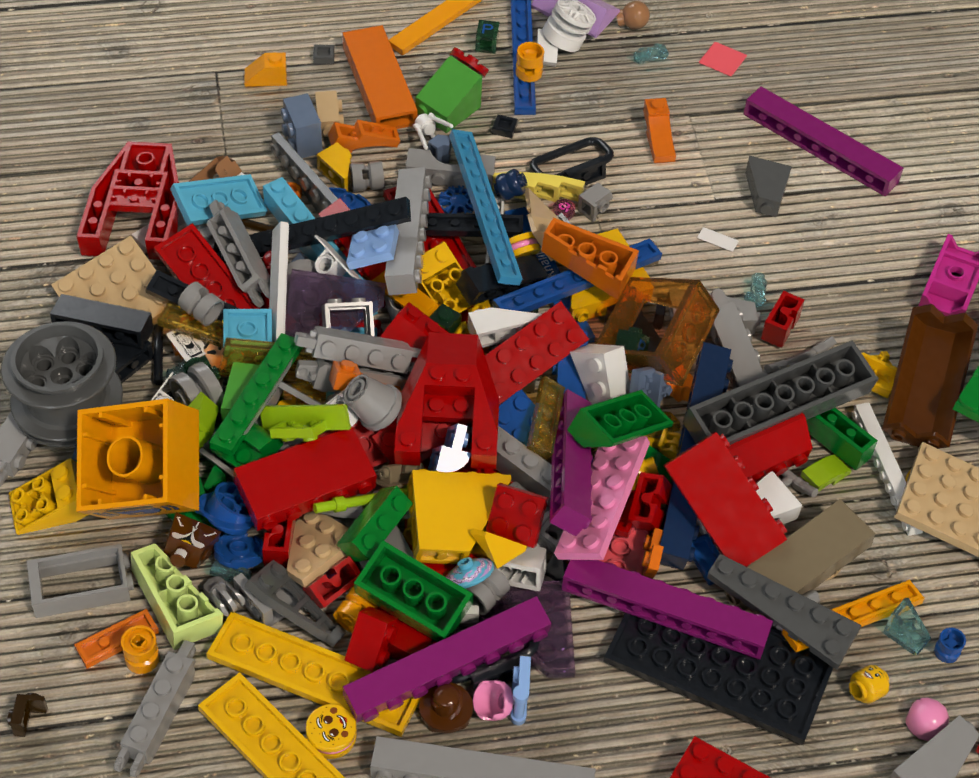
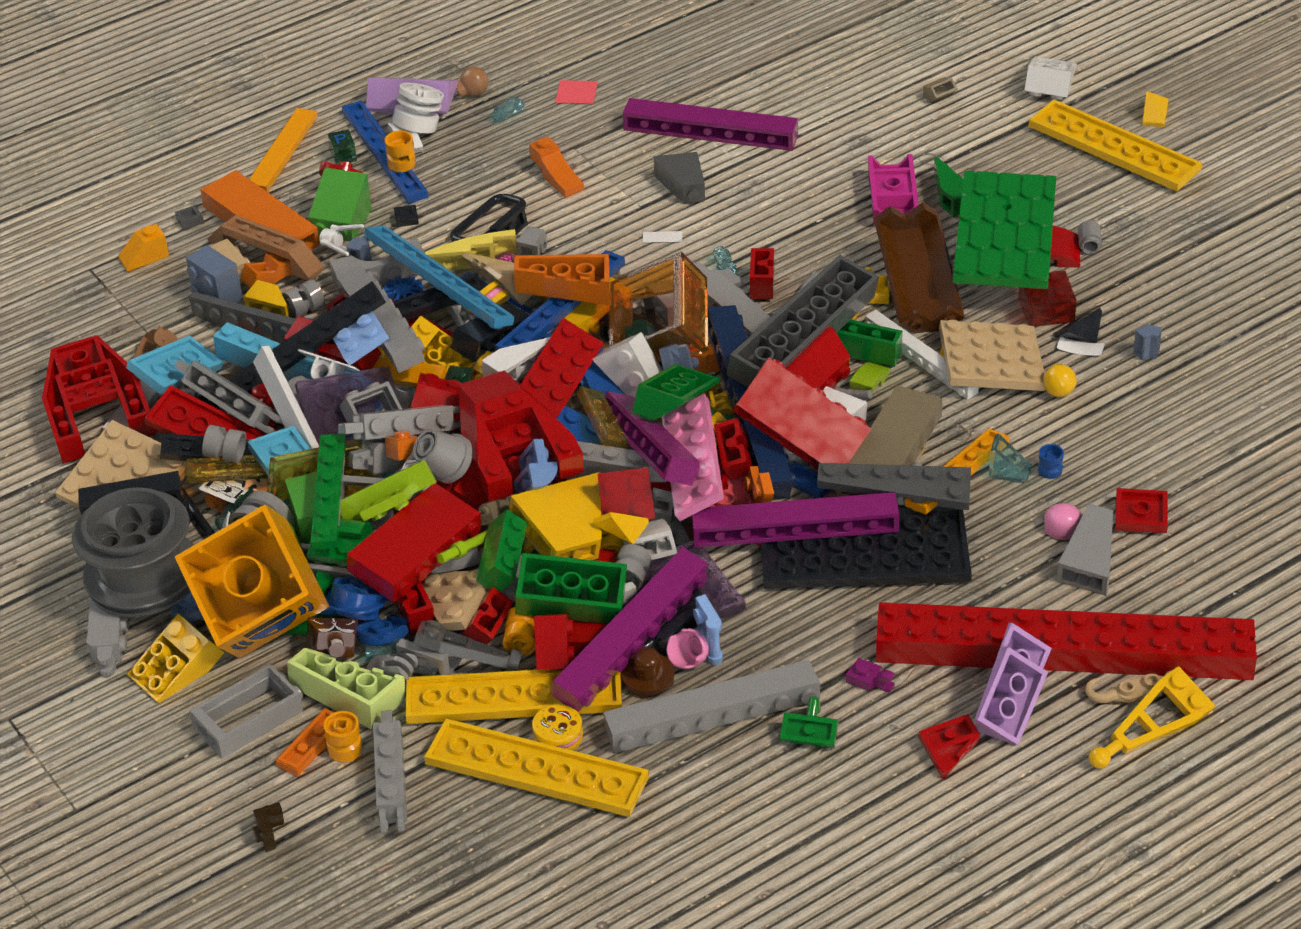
camera: 20 degrees left, 10 degrees down
(372, 114) = (302, 260): none -> medium nougat slope
(471, 571) = (614, 552): medium azure dish -> none
(510, 184) = (448, 253): dark blue piece -> none
(869, 684) = (1000, 513): yellow head -> none

